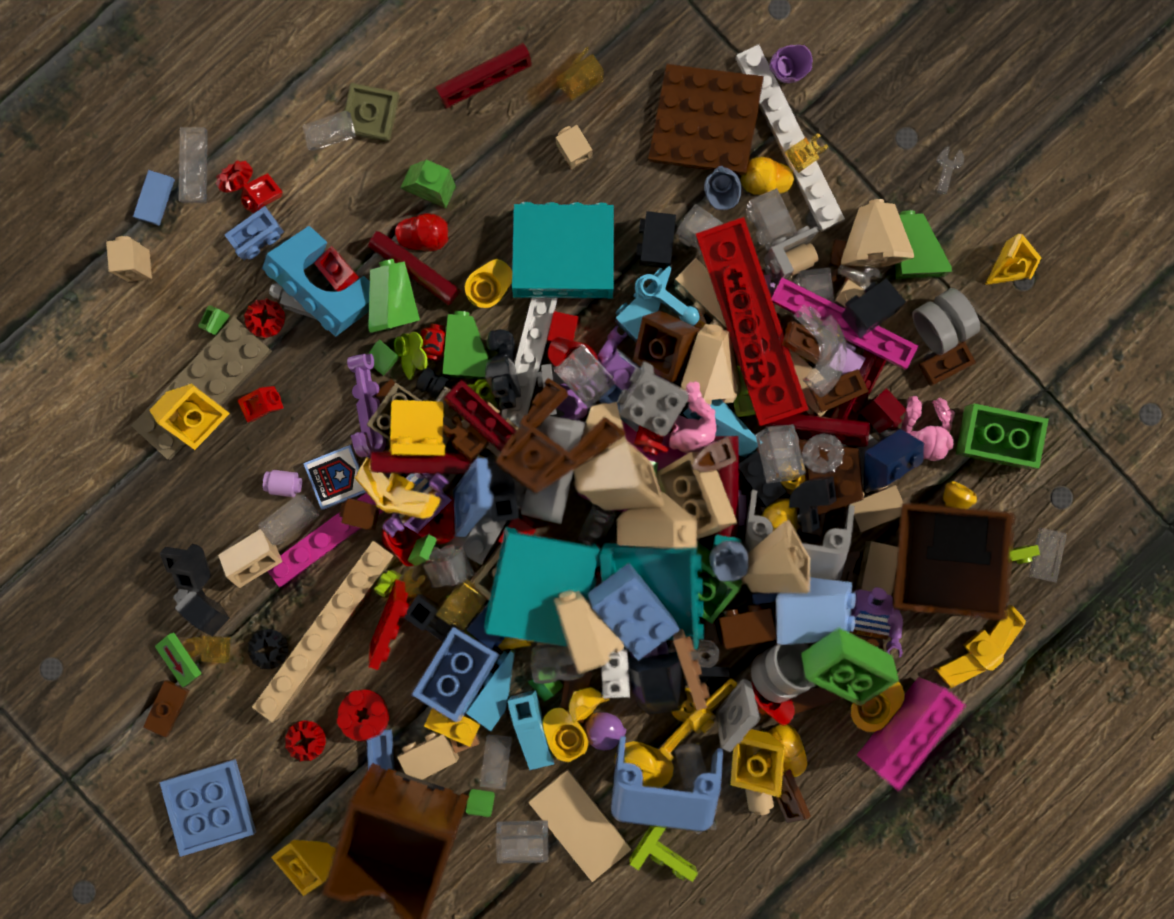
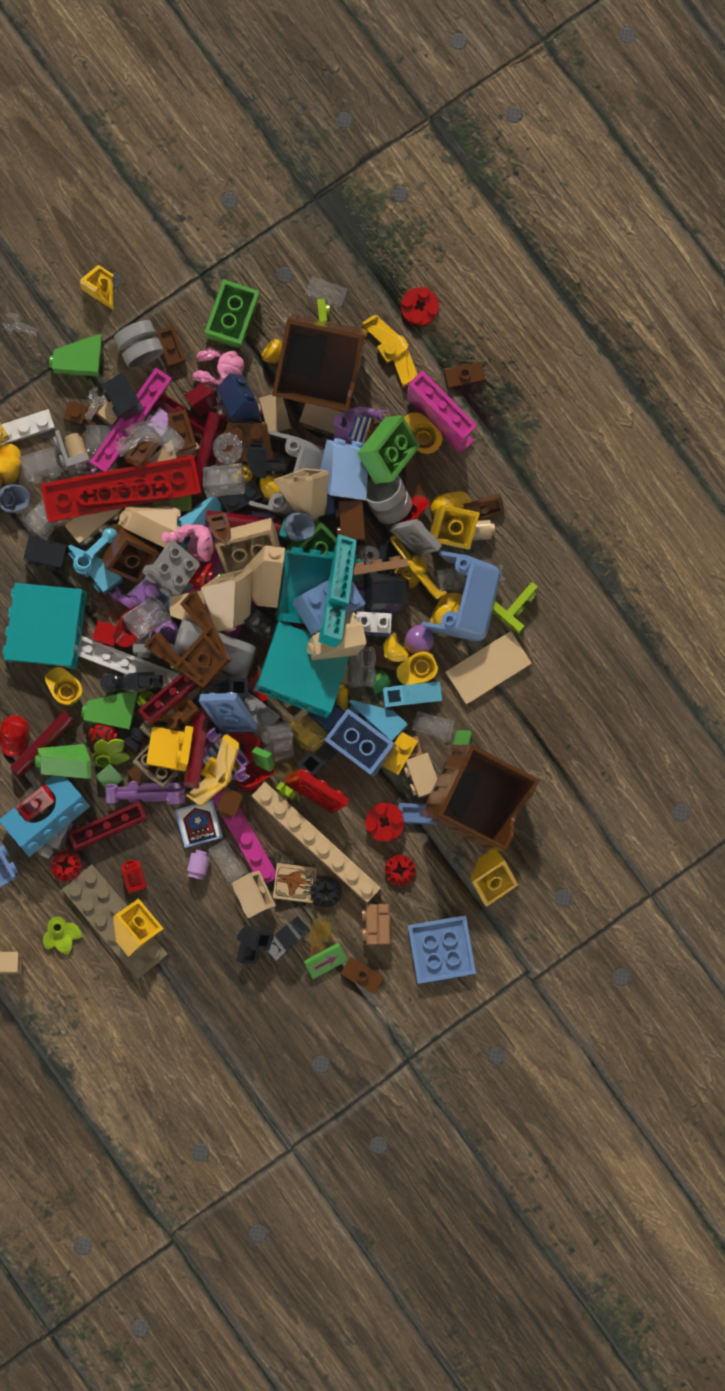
camera: 85 degrees left, 5 degrees down
(174, 325) = (61, 938): none -> lime plate
(213, 320) = (62, 907): bright green slope -> none
(229, 722) = (377, 924): none -> medium nougat brick
(274, 607) = (294, 882): none -> sticker
(318, 363) = (107, 826): none -> dark red brick
(522, 841) = (494, 710): clear brick -> none
(645, 625) = (338, 591): none -> teal slope
(877, 237) = (67, 386): tan slope -> none
(962, 749) = (464, 375): none -> reddish brown plate
(1031, 676) = (429, 311): none -> red plate

